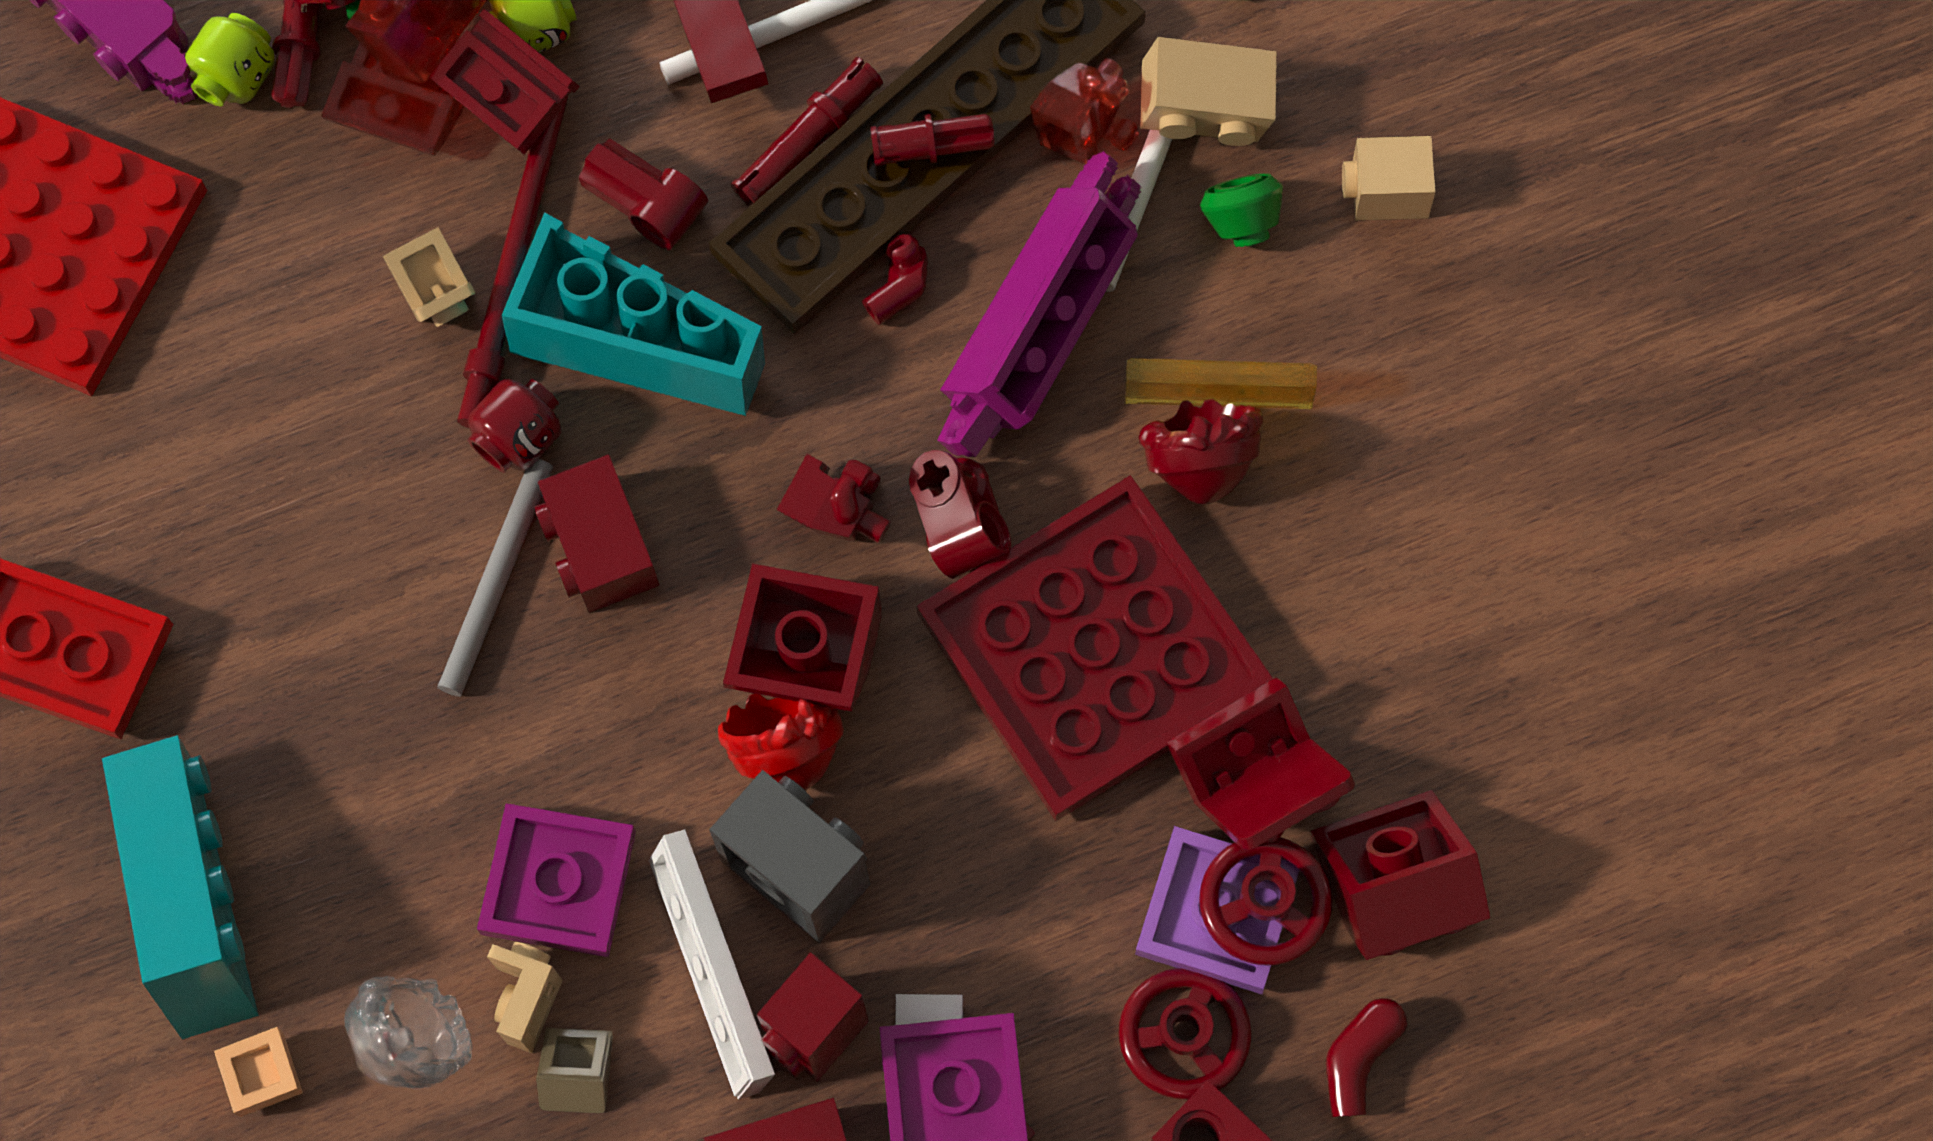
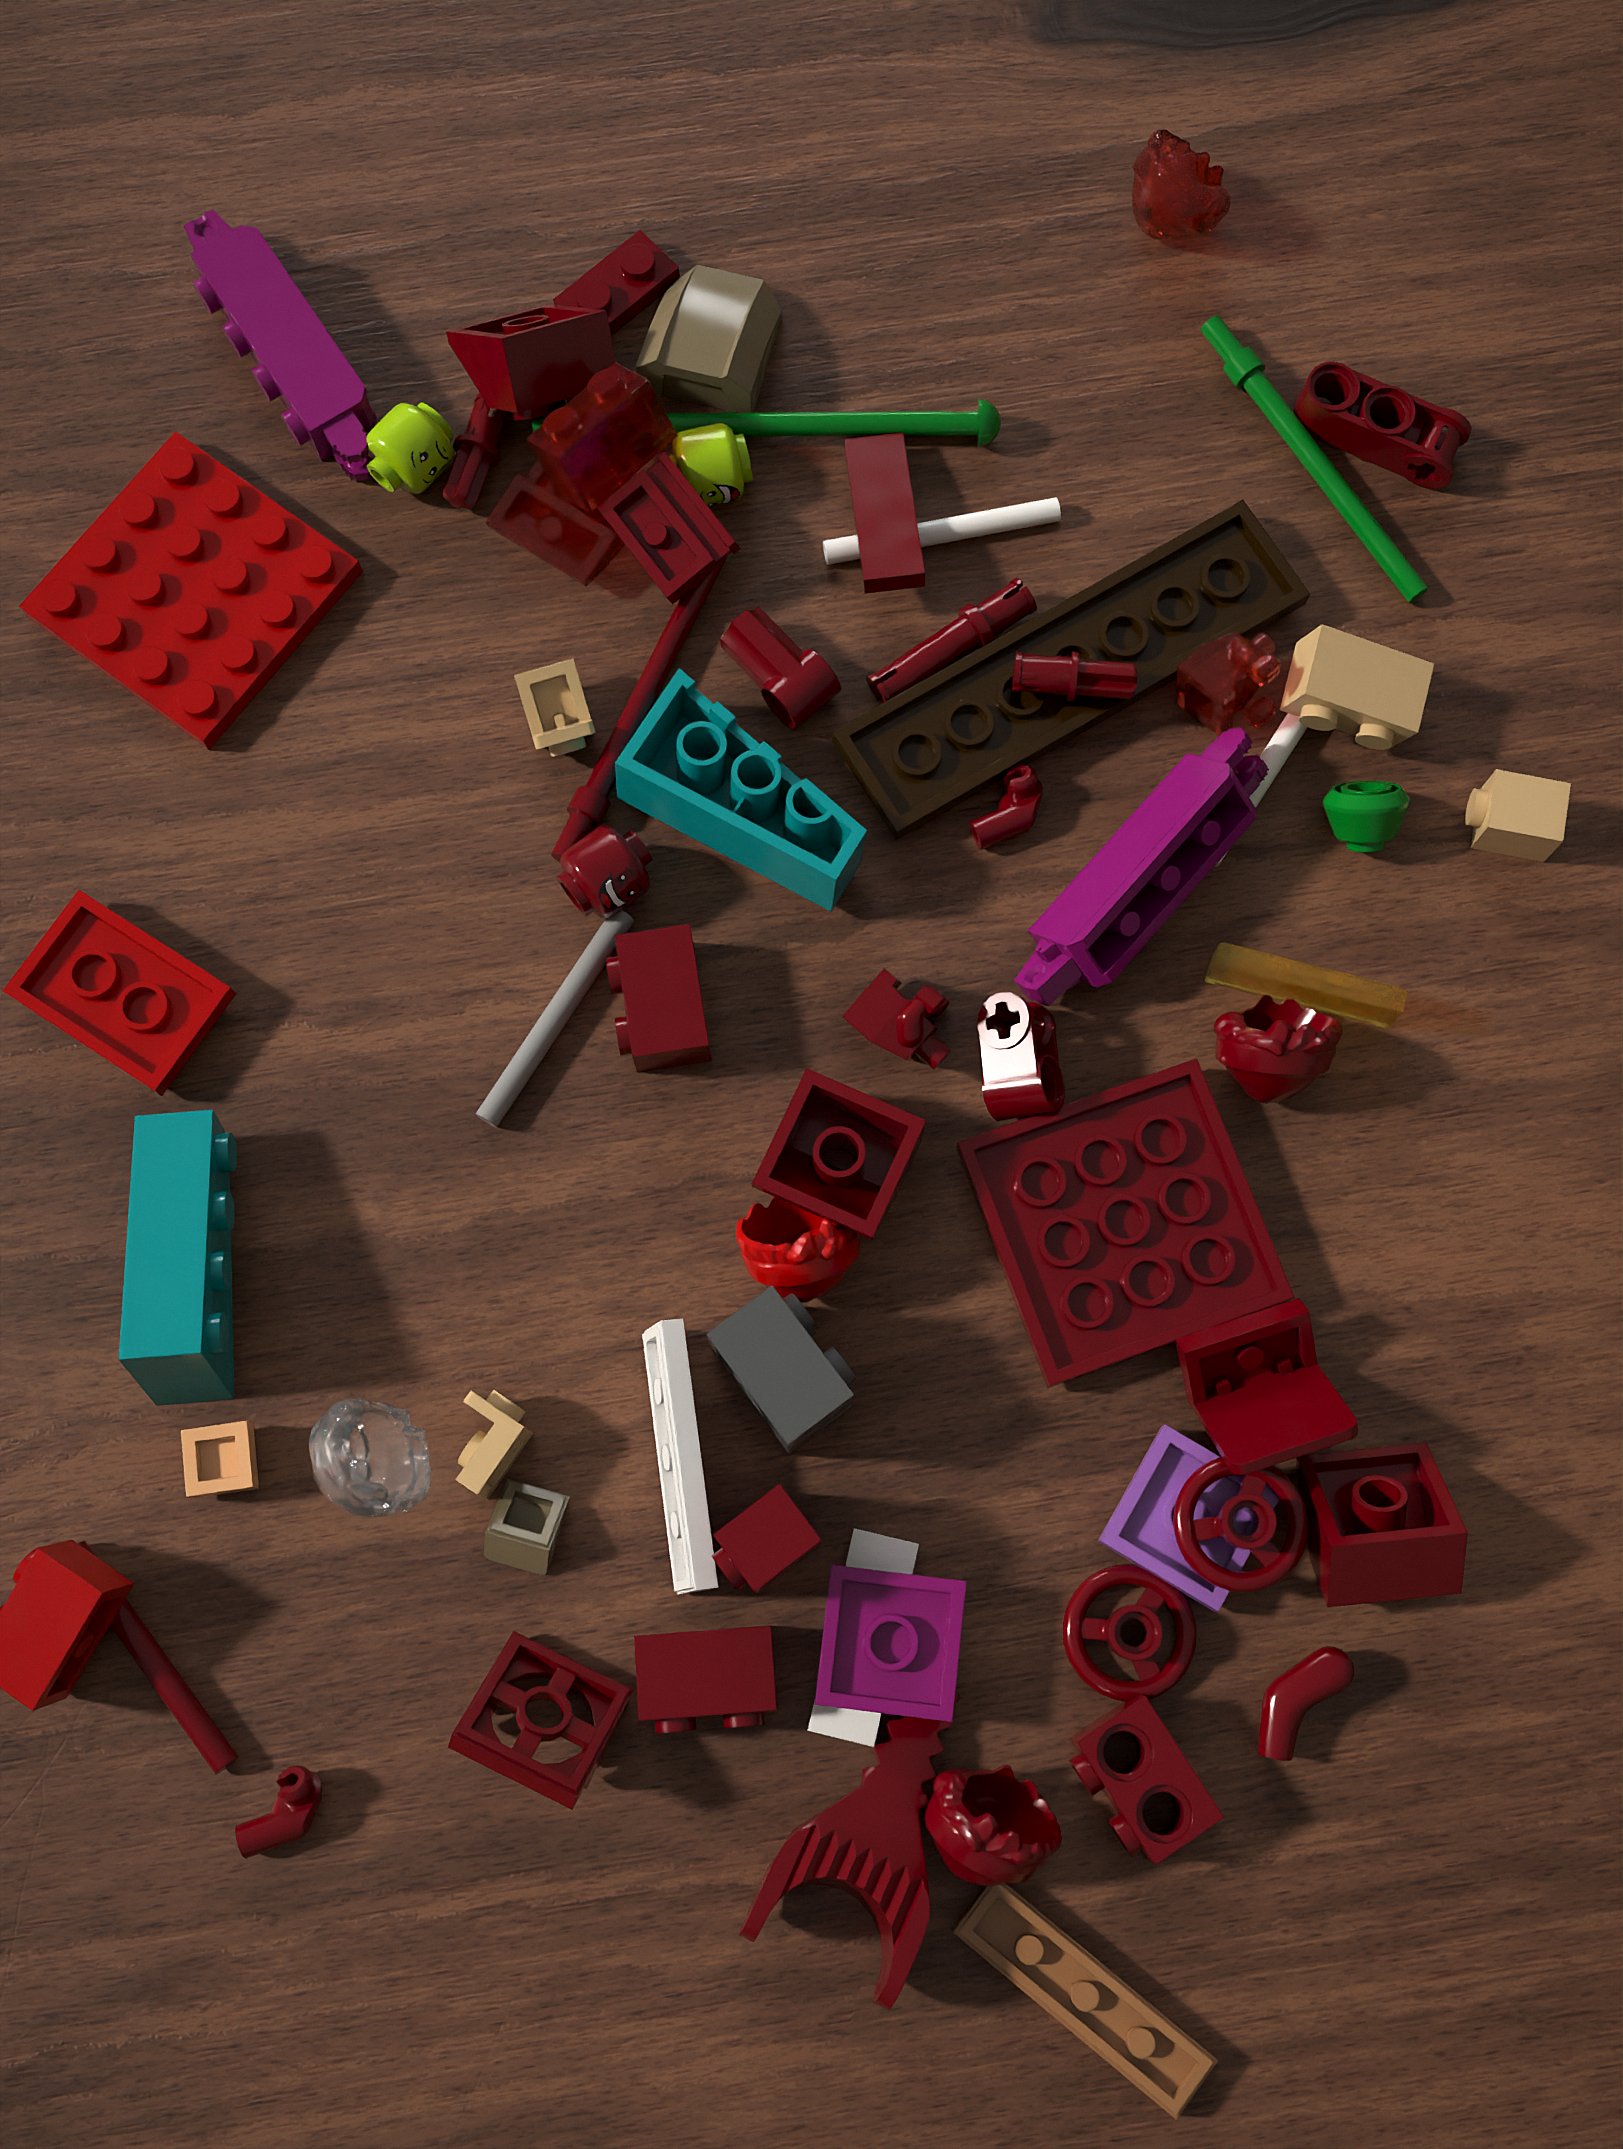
camera: 10 degrees right, 5 degrees up
(556, 880) = (548, 1335): magenta plate -> none

